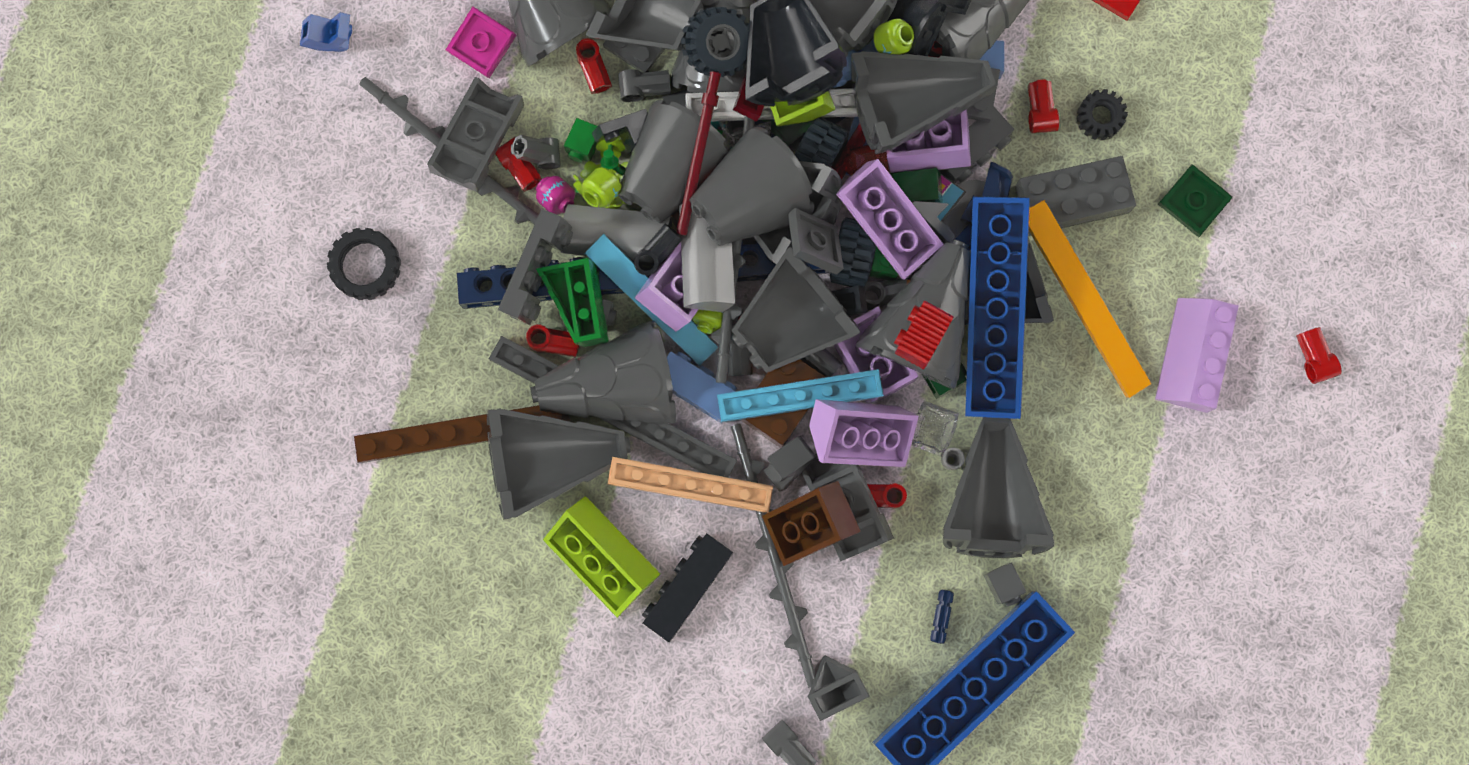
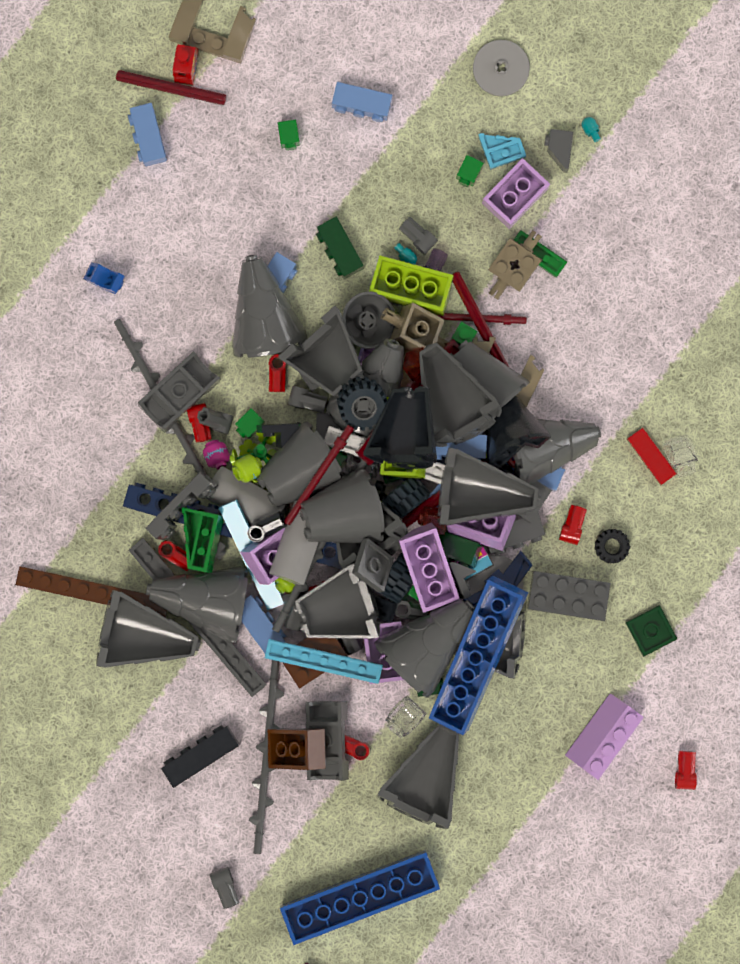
camera: 25 degrees right, 5 degrees up
(353, 239) = (53, 439): black tyre -> none
(481, 42) = (207, 325): dark pink plate -> none
(601, 556) = (151, 712): lime slope -> none
(690, 485) = (228, 690): light nougat tile -> none
(789, 463) = (299, 701): dark grey slope -> none
(835, 688) = (269, 861): dark grey slope -> none
(862, 433) = (354, 702): lavender slope -> none
(893, 37) = (481, 447): lime head -> none
(923, 334) = (415, 659): red brick -> none
(942, 616) = (360, 842): dark blue axle -> none
(958, 456) = (410, 746): light grey hose -> none
(1005, 584) = (410, 838): dark grey brick -> none
(1086, 300) = (543, 671): light orange tile -> none

